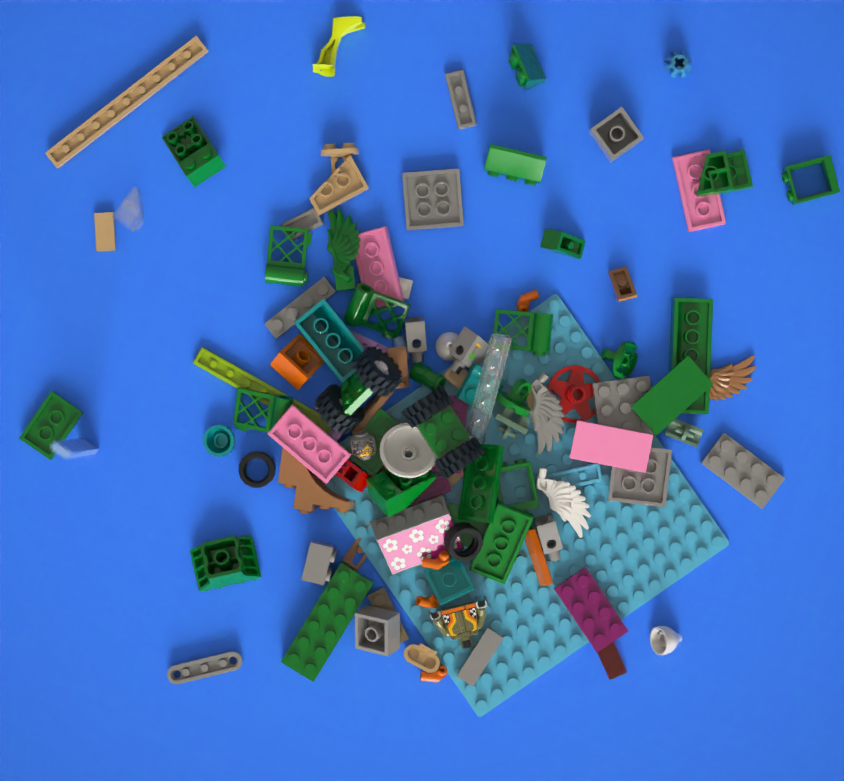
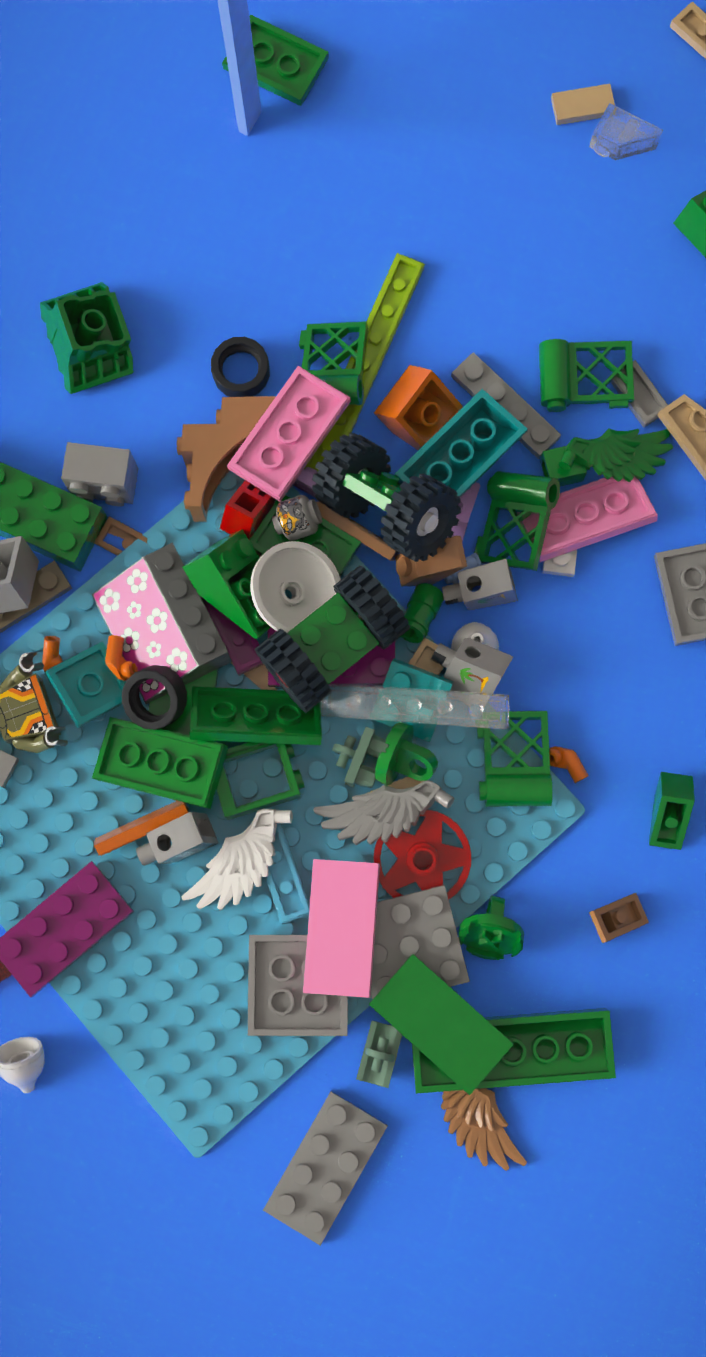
camera: 90 degrees right, 10 degrees down
(219, 440) = (279, 304): teal hat -> none

